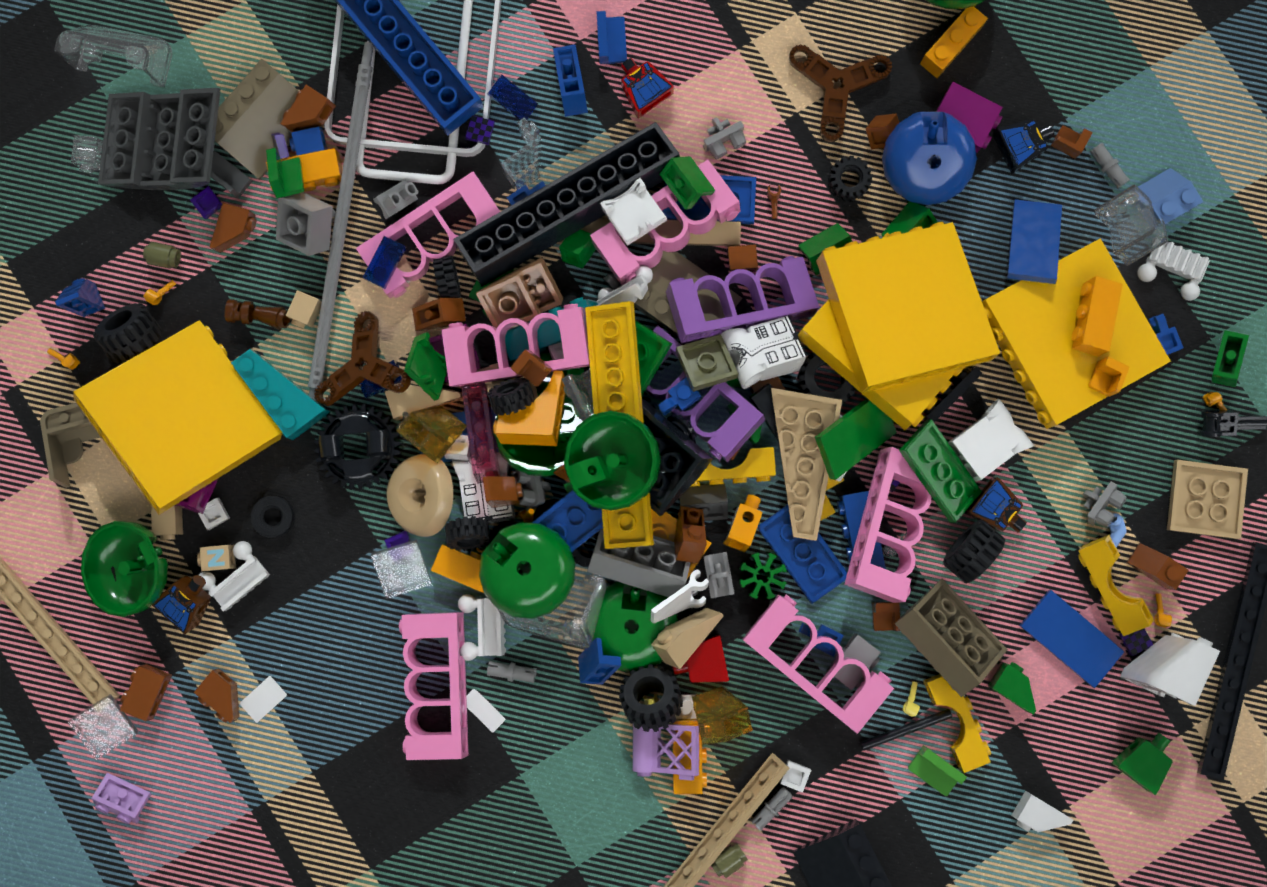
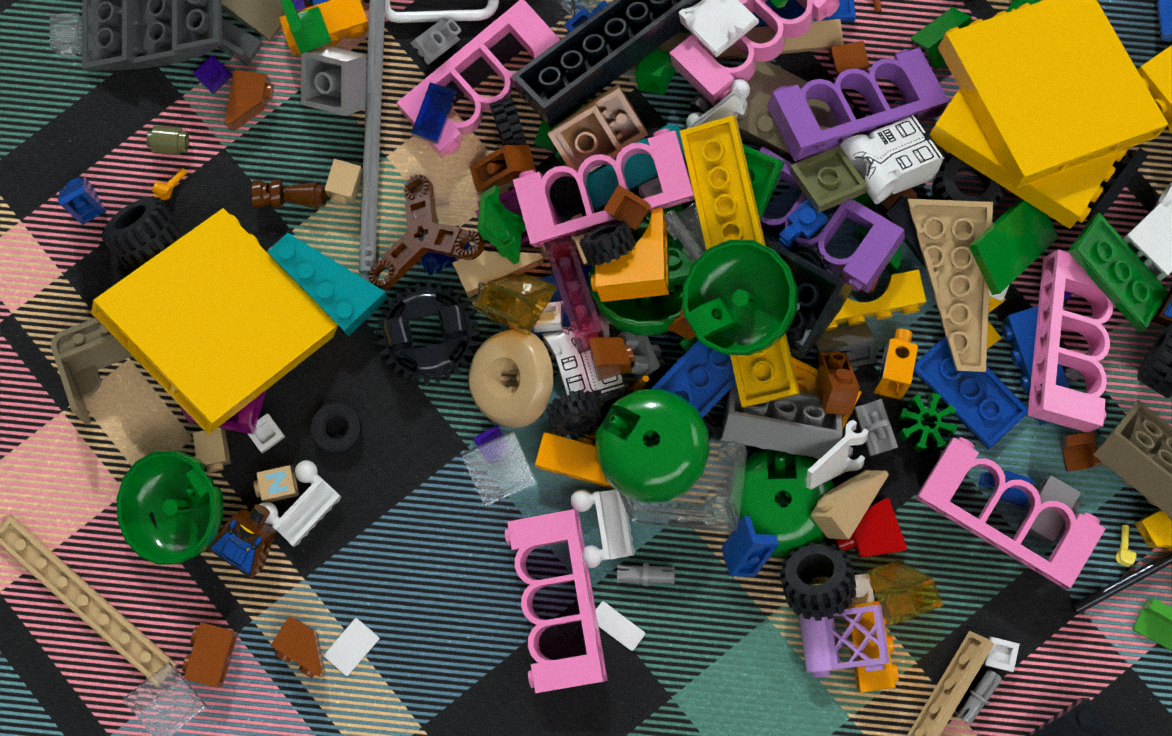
camera: 10 degrees left, 5 degrees down
(69, 361) = (72, 277): light orange hand -> none

